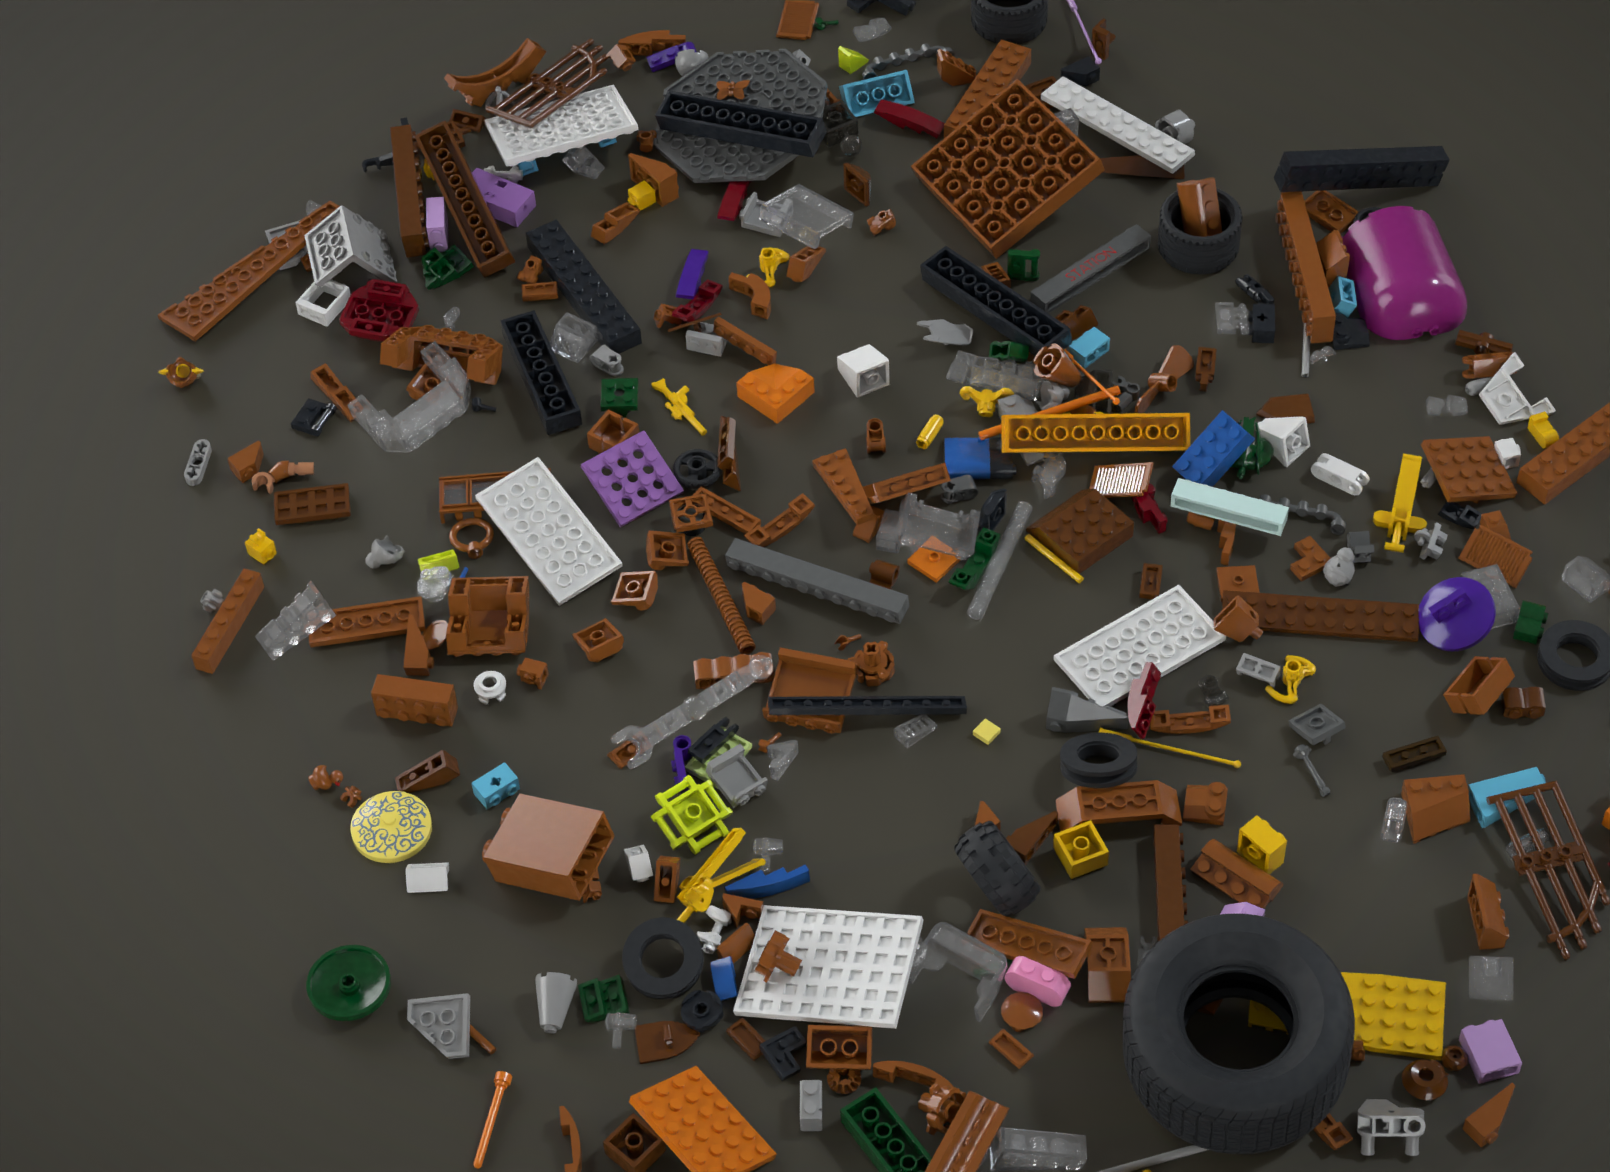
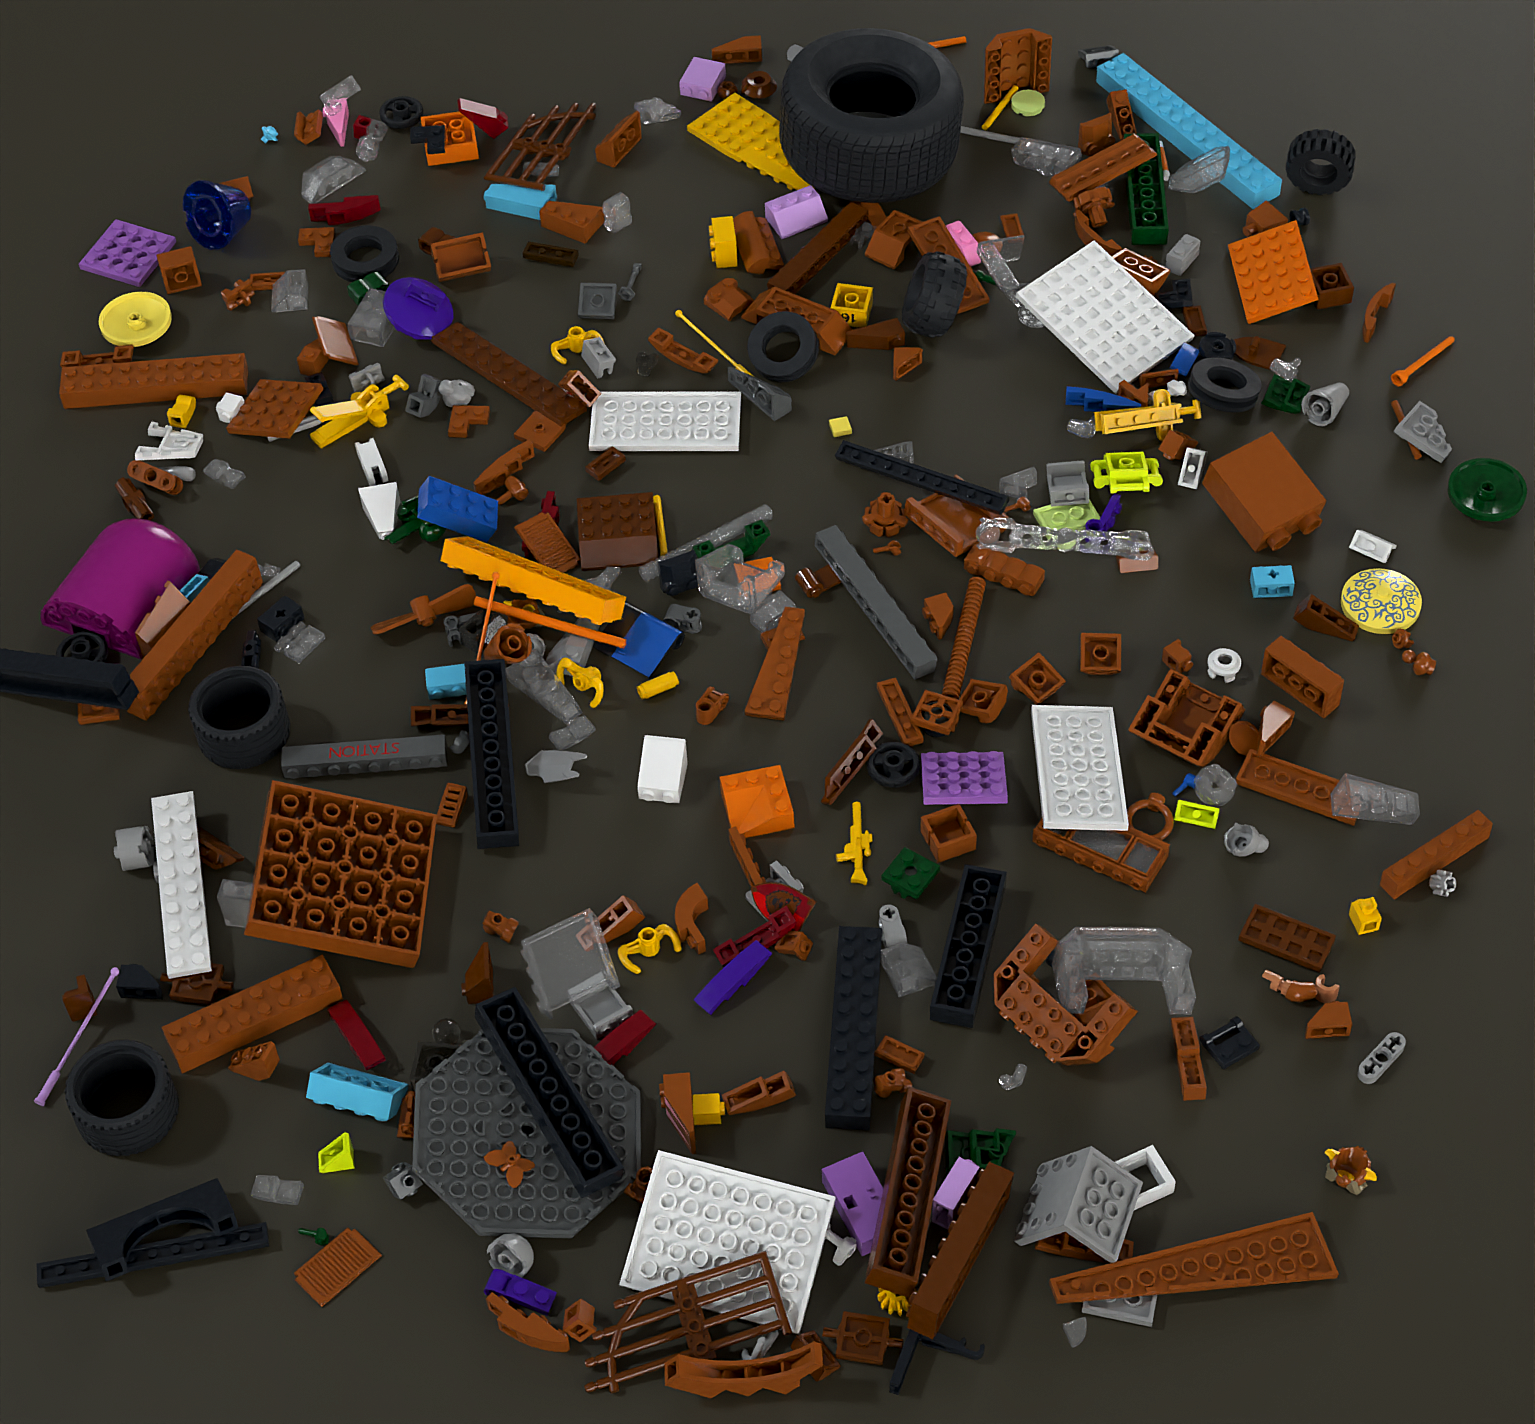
camera: 145 degrees left, 0 degrees up
(379, 310) = (1098, 1090): dark red piece -> none
(712, 740) = (1066, 517): black hinge -> none
(775, 956) = (1142, 326): dark orange piece -> none
(782, 524) = (860, 676): dark orange slope -> none
(896, 59) = (291, 1128): dark grey bar -> none
(906, 483) = (735, 619): dark orange panel -> none
(1009, 351) = (524, 703): dark green brick -> none
(1017, 264) = (423, 785): dark green plate -> none
(1140, 699) = (708, 372): dark red slope -> none
(1199, 207) = (228, 714): dark orange brick -> none
(1205, 366) = (370, 610): reddish brown hinge -> none
(1229, 506) = (493, 463): light aqua brick -> none
(1288, 406) = (344, 541): reddish brown tile -> none
(1321, 512) = (439, 464): dark grey bar -> none

